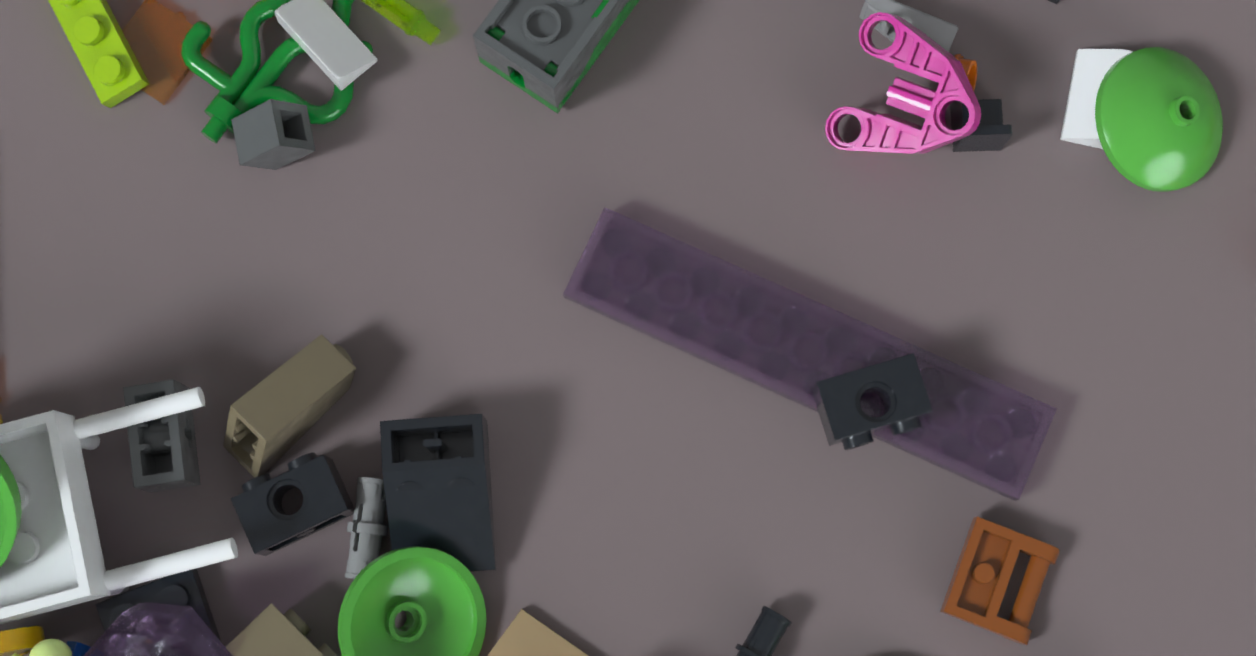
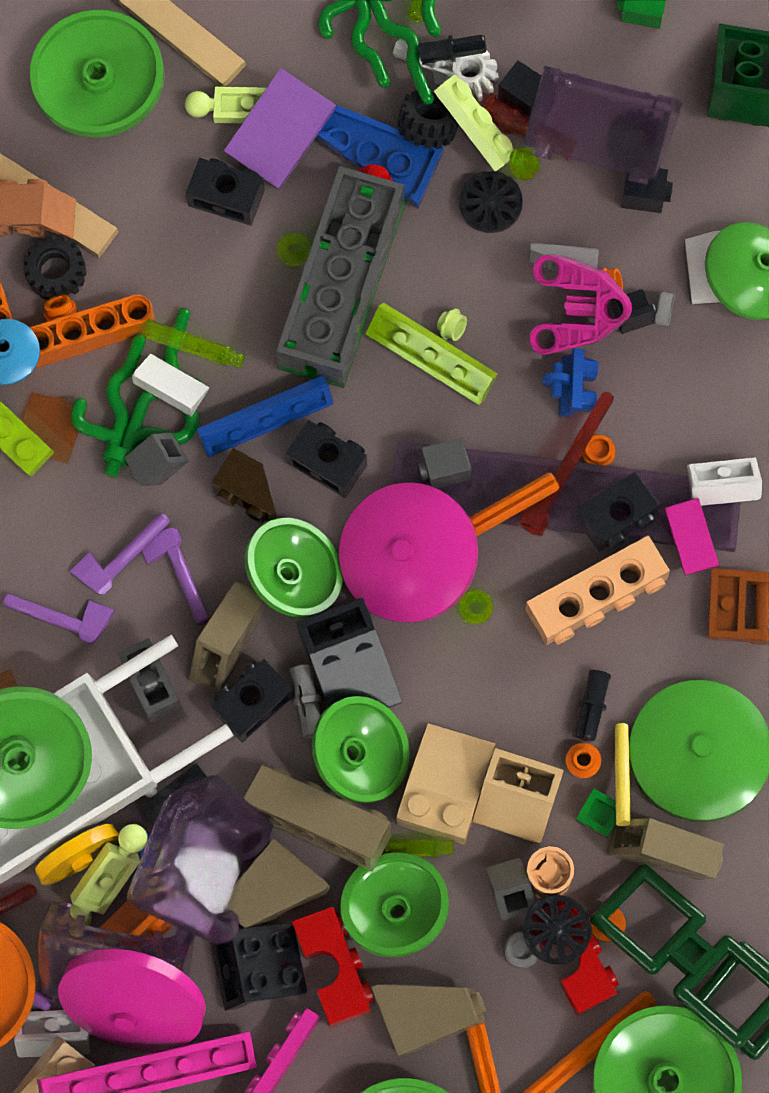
camera: 15 degrees left, 5 degrees down
(112, 337) = (89, 629): none -> medium lavender piece
(151, 273) = (100, 579): none -> medium lavender piece
(257, 251) = (168, 543): none -> medium lavender piece
(386, 206) = (245, 484): none -> dark brown slope
(431, 333) = (303, 557): none -> bright green dish
(438, 120) = (265, 416): none -> blue tile
(510, 229) = (336, 475): none -> black brick
(569, 367) = (408, 552): none -> dark pink dish
(633, 452) = (471, 597): none -> clear neon green plate
(654, 259) = (444, 463): none -> dark grey brick
(680, 355) = (514, 503): none -> orange axle
(688, 102) = (431, 353): none -> lime plate
(728, 71) = (452, 325): none -> yellowish green plate
(756, 373) = (536, 518): none -> clear red piece
(859, 197) = (568, 380): none -> blue hips
(871, 302) = (599, 451): none -> orange plate
(883, 470) = (638, 557): none -> light nougat brick
(963, 466) = (691, 536): none -> dark pink tile
(1022, 135) = (665, 309): none -> light grey tile
(1032, 401) = (725, 481): none -> white slope

